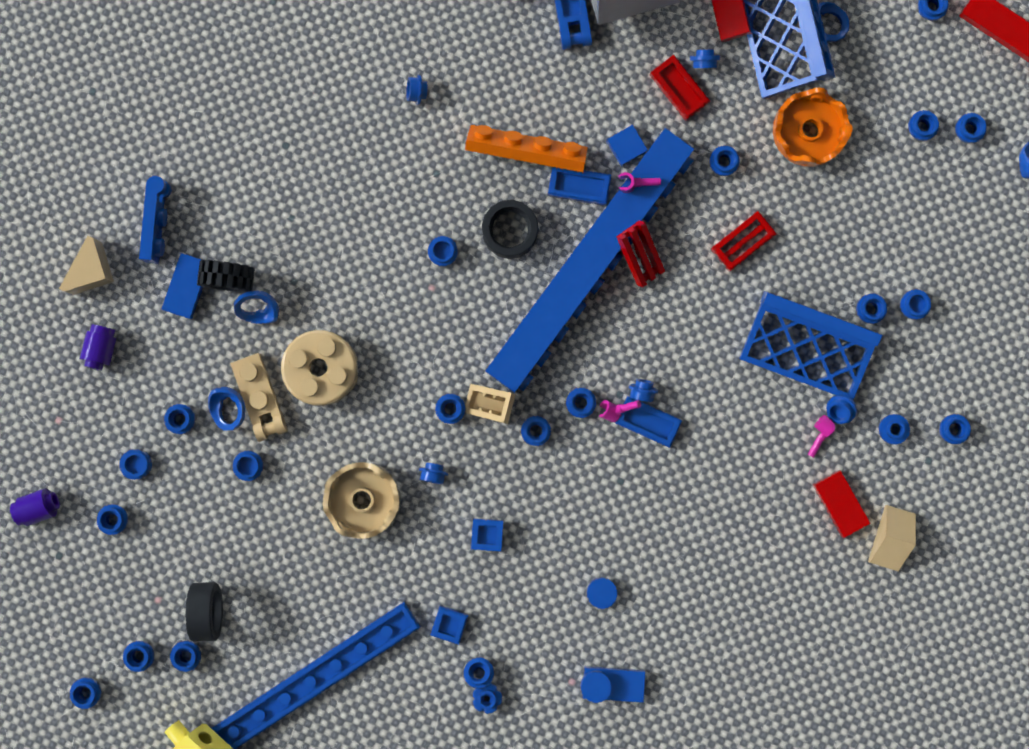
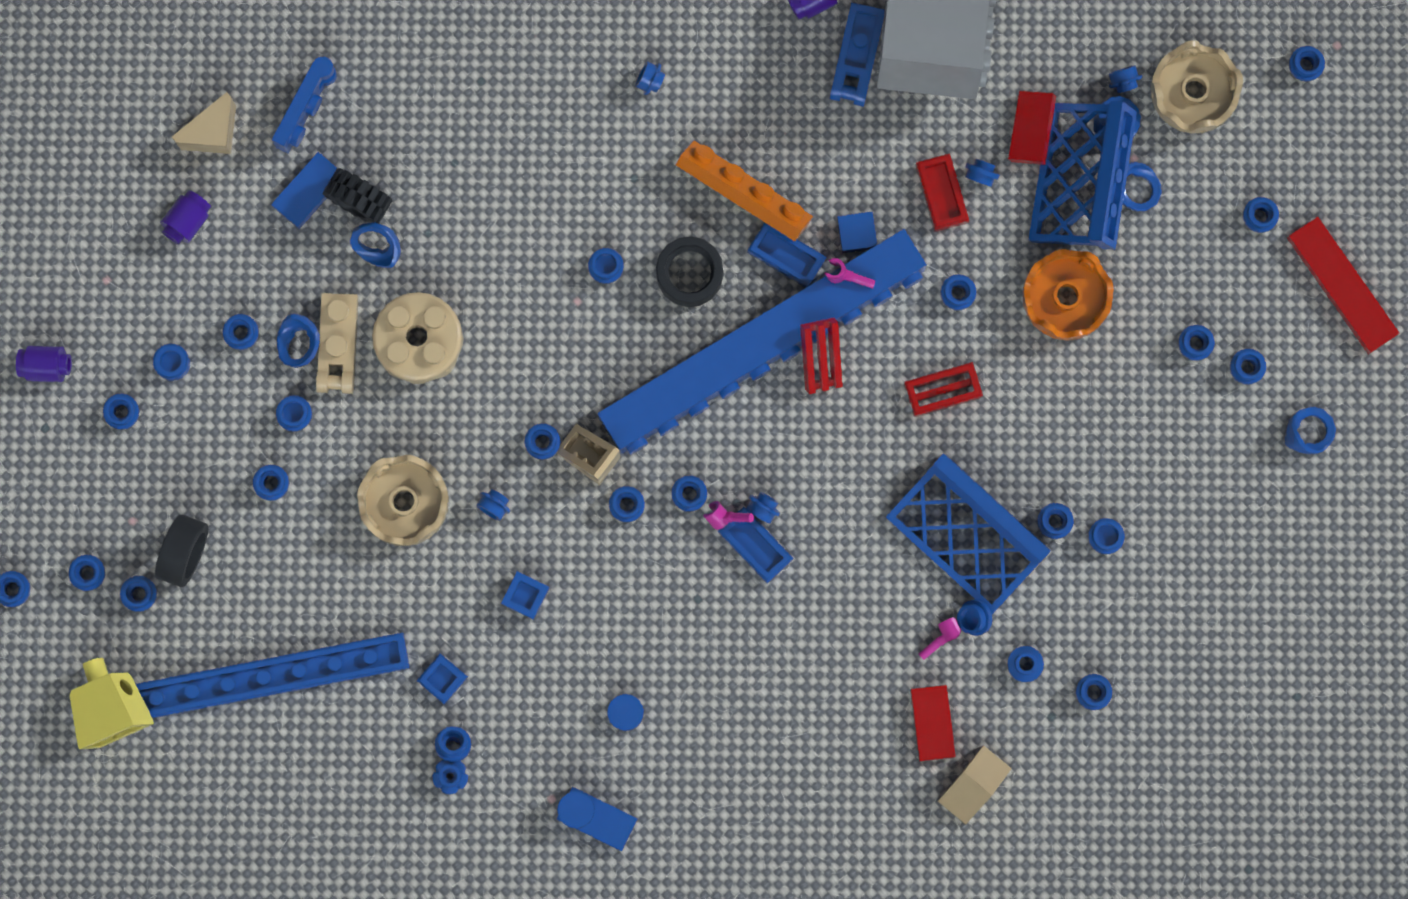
camera: 20 degrees right, 5 degrees down
(244, 531) = (263, 474): none -> blue plate

